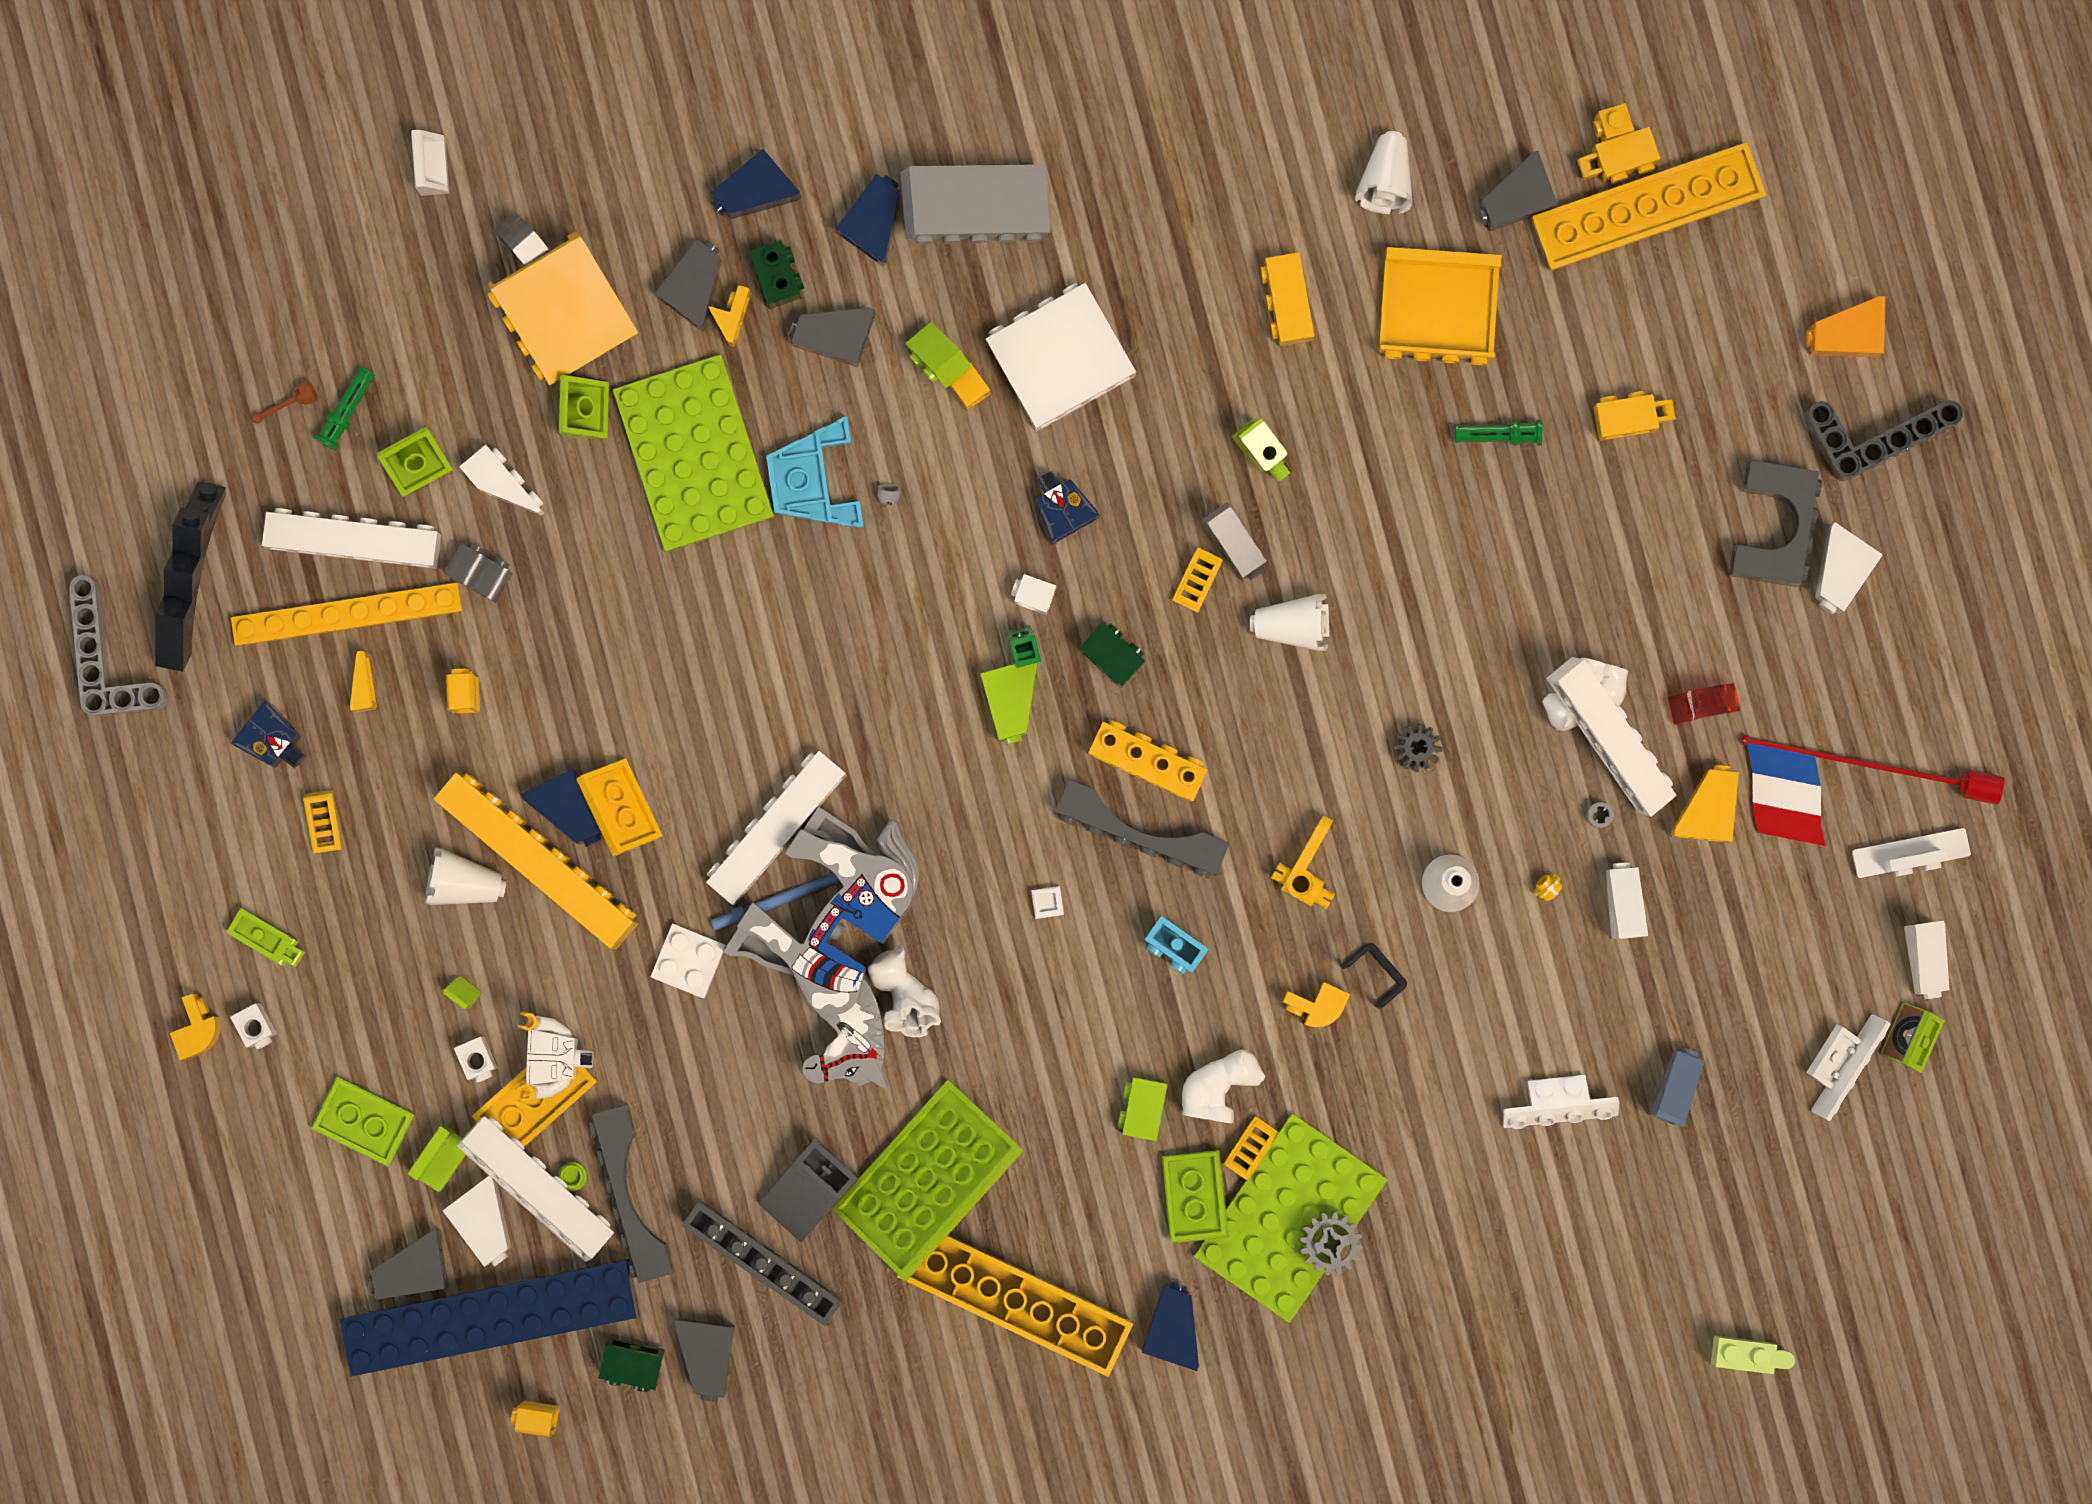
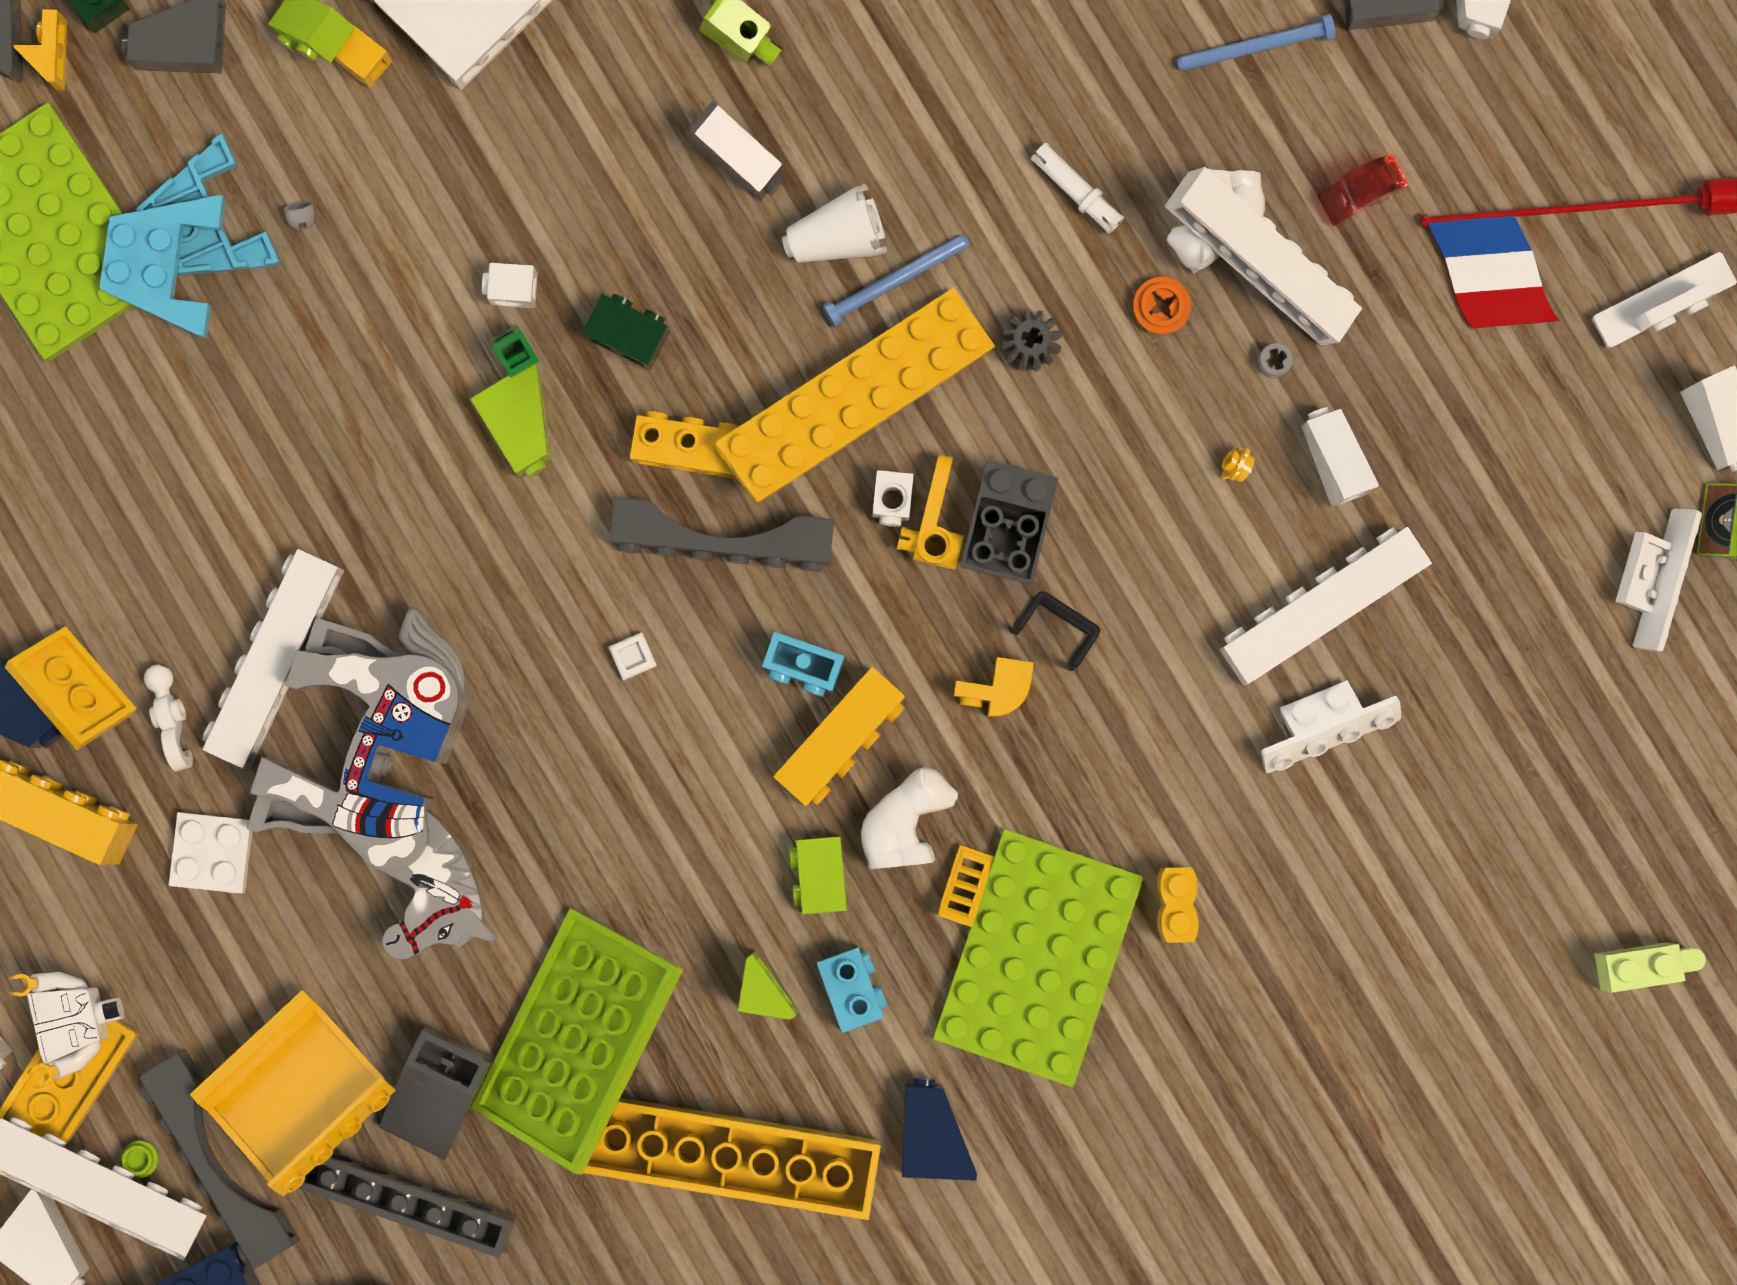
camera: 20 degrees left, 0 degrees up
(685, 847) = (168, 716): none -> white piece
(705, 1160) = (293, 1093): none -> yellow panel
(764, 495) = (145, 256): none -> medium azure wing
(777, 900) = (301, 746): medium blue bar -> none
(913, 1004) = (501, 827): white animal -> none
(1063, 508) = (518, 171): dark blue torso -> none
(1075, 1184) = (762, 992): none -> lime slope
(1143, 1201) = (851, 988): none -> medium azure brick
(1188, 1008) = (839, 737): none -> yellow brick
(1195, 1196) = (914, 965): lime tile -> none
(1209, 558) = (714, 182): yellow slope -> none
(1272, 753) = (854, 396): none -> yellow plate
(1281, 825) = (892, 481): none -> white brick
(1318, 1246) = (1112, 966): light grey gear -> none
(1326, 671) = (836, 312): none -> medium blue bar
(1361, 882) = (1009, 522): none -> dark grey slope
(1409, 1199) = (1177, 916): none -> yellow brick
(1439, 888) = (1112, 506): white cone -> none
(1492, 651) = (1087, 198): none -> white pin
(1531, 737) = (1165, 289): none -> orange gear
(1583, 1014) = (1324, 606): none -> white brick
(1656, 568) = (1323, 28): none -> medium blue bar
(1677, 1087) = (1465, 664): sand blue slope -> none
(1710, 808) = (1407, 313): yellow slope -> none

